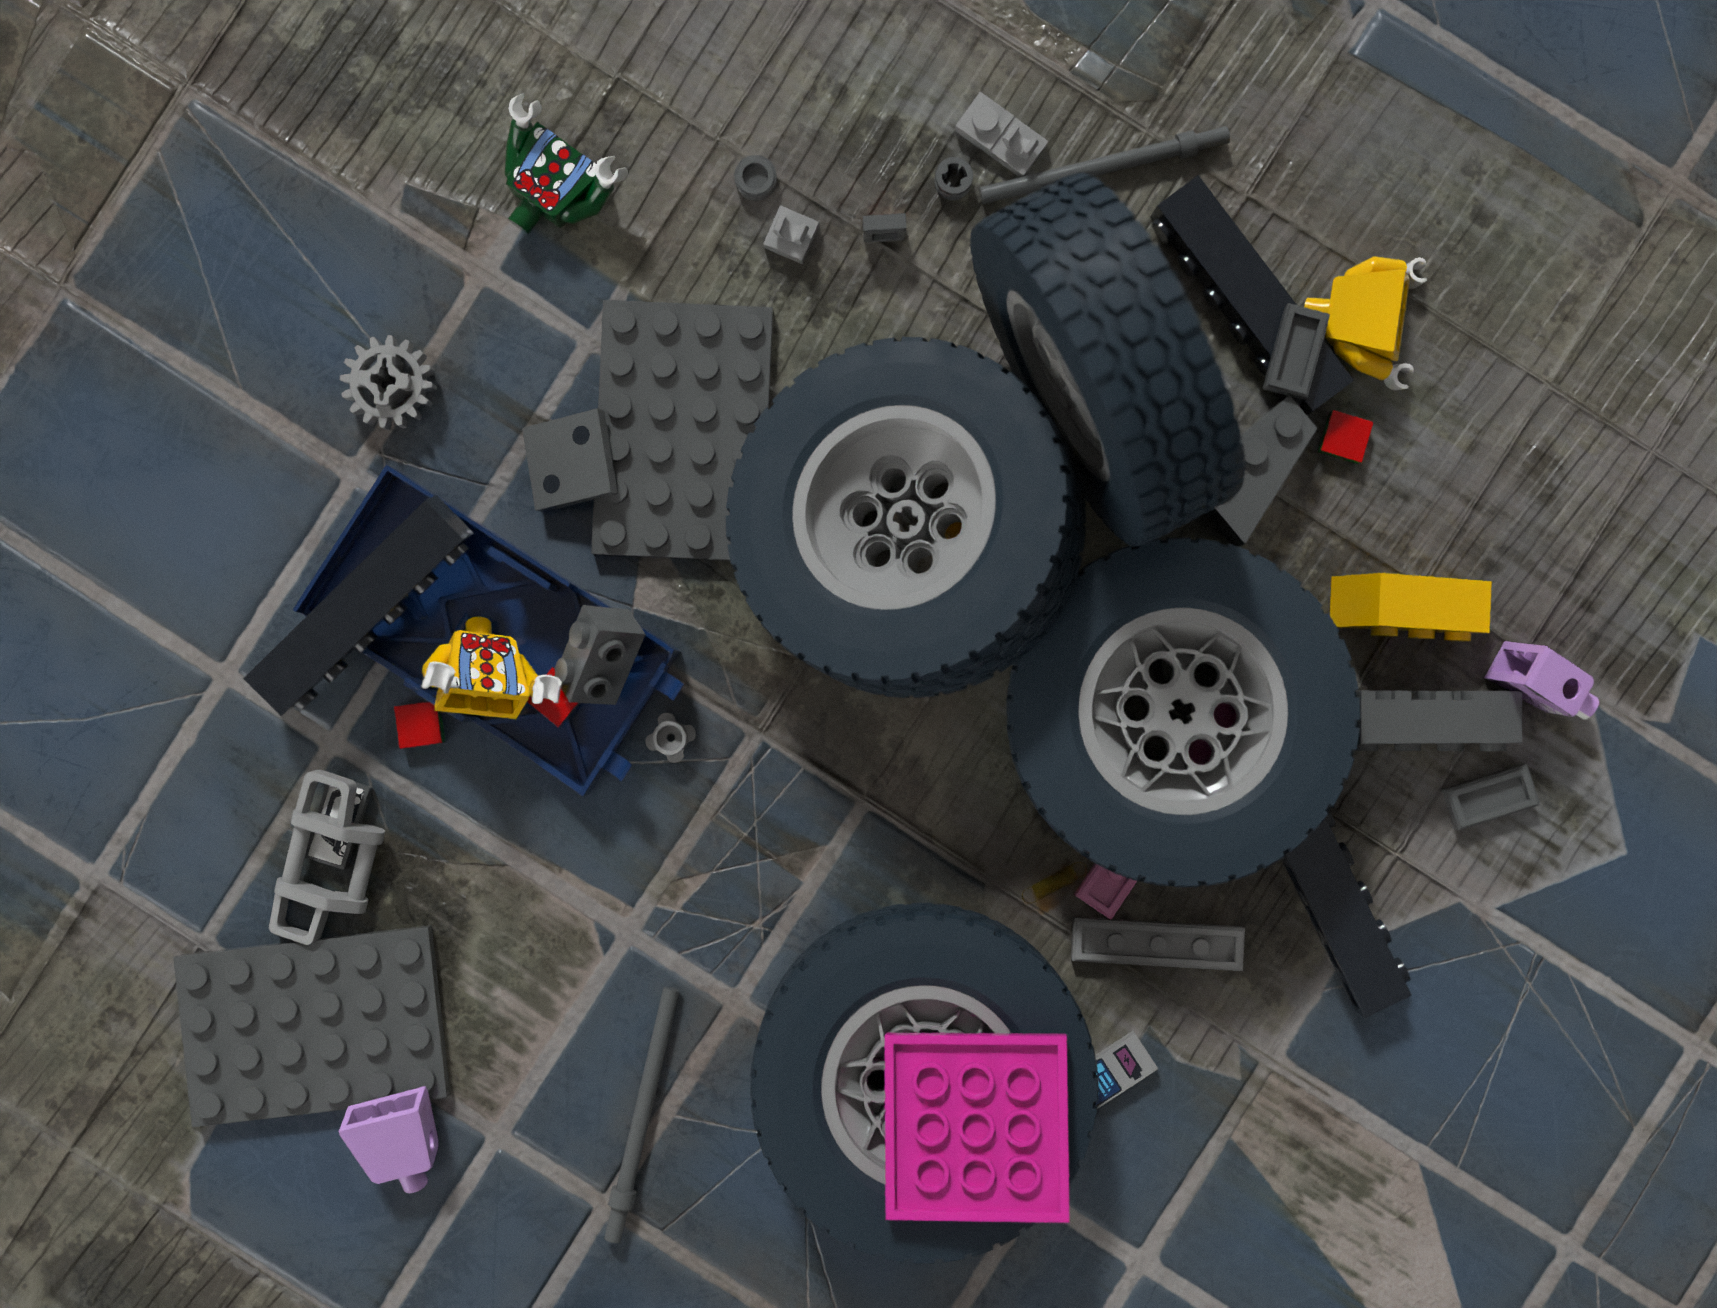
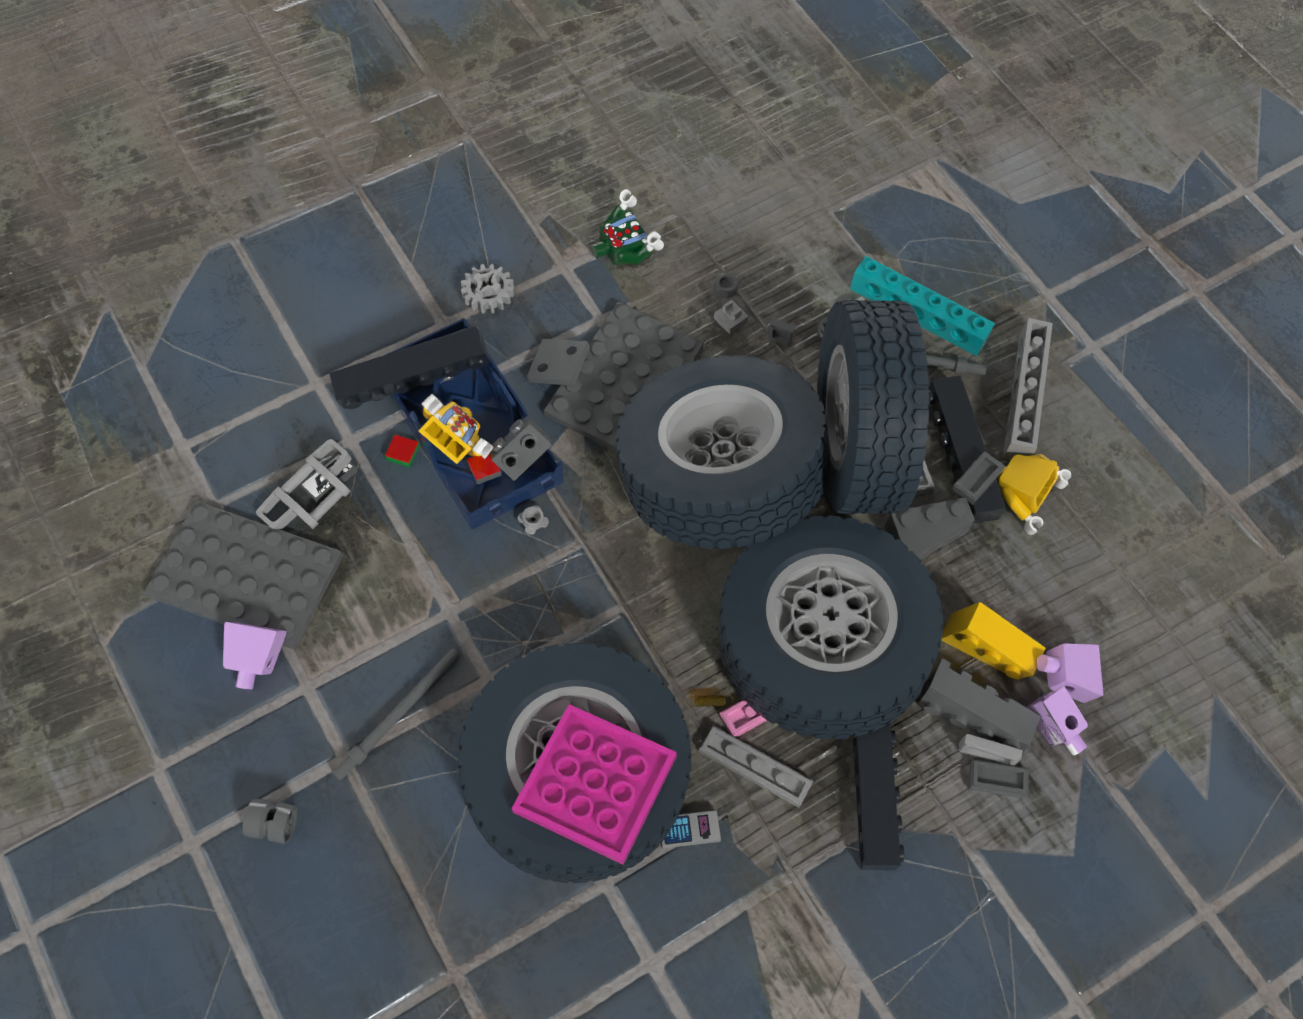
camera: 20 degrees right, 25 degrees down
(1083, 65) = (933, 310): none -> teal brick
(1309, 143) = (1028, 389): none -> light grey brick
(1345, 437) = (989, 542): red tile -> none
(1466, 768) = (989, 750): none -> light grey tile
(1540, 591) = (1075, 668): none -> lavender torso

